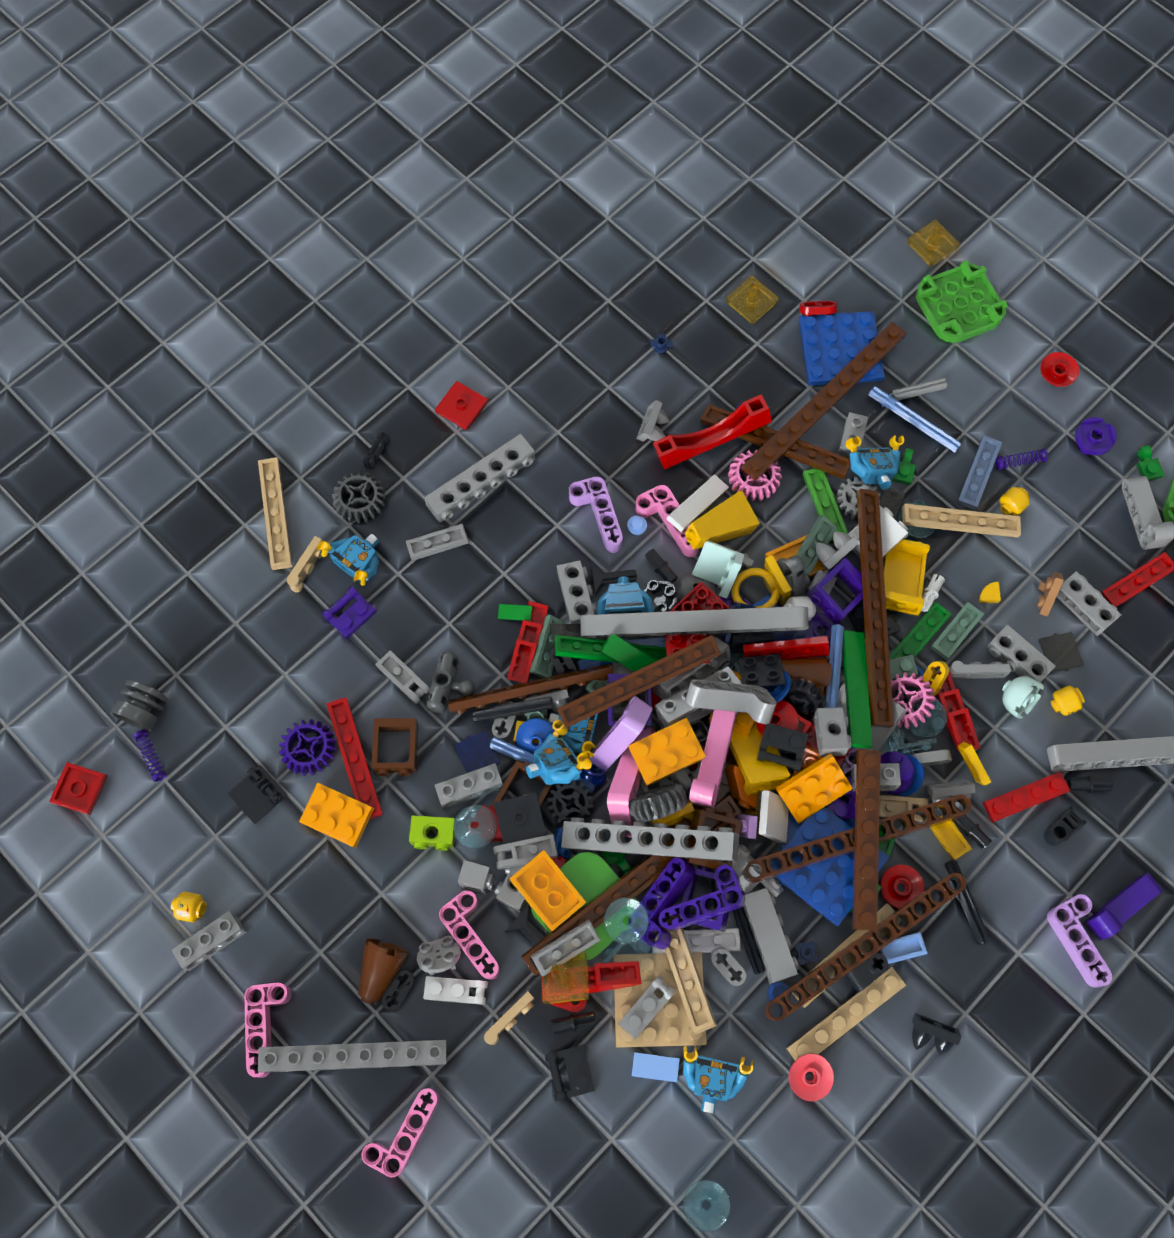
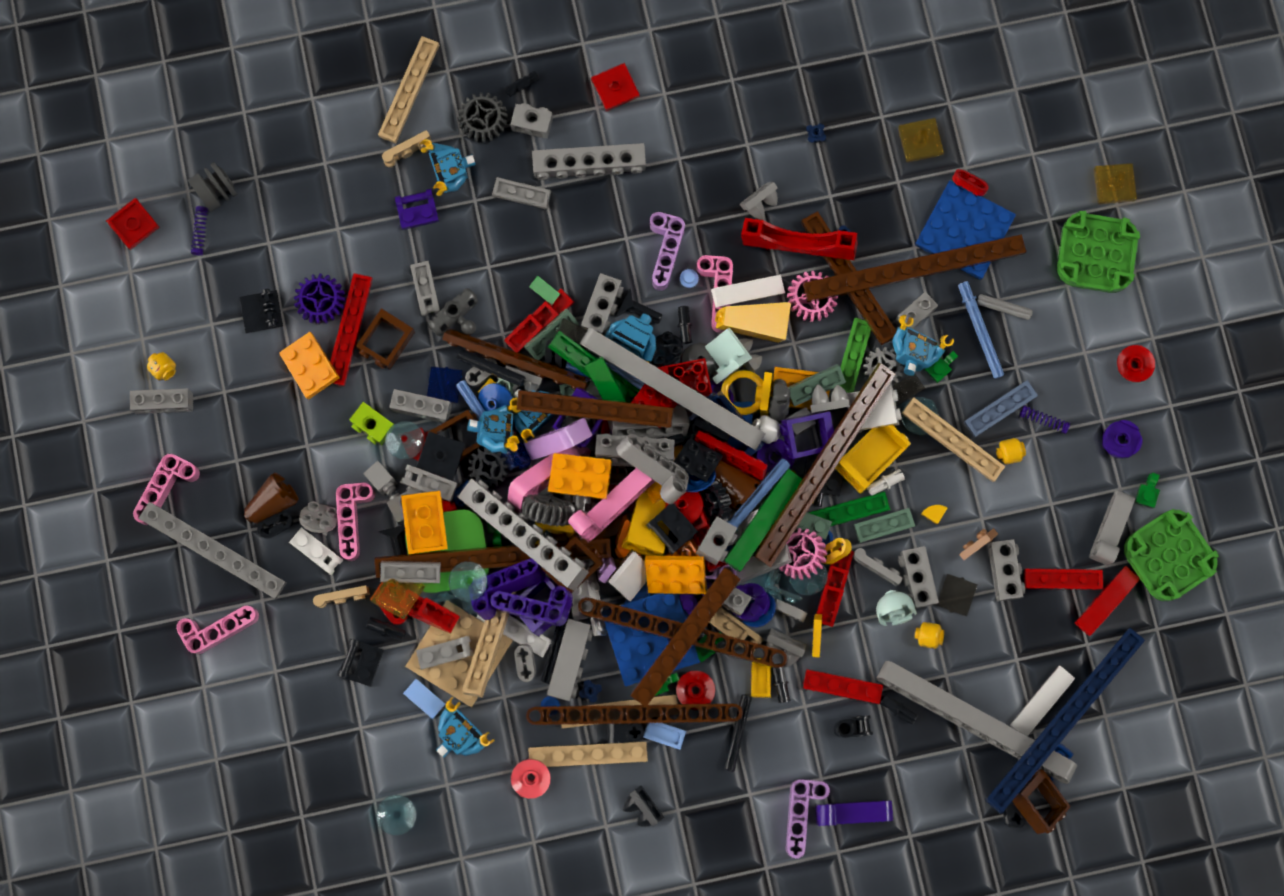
camera: 30 degrees right, 10 degrees up
(400, 483) = (539, 128): none -> light grey brick

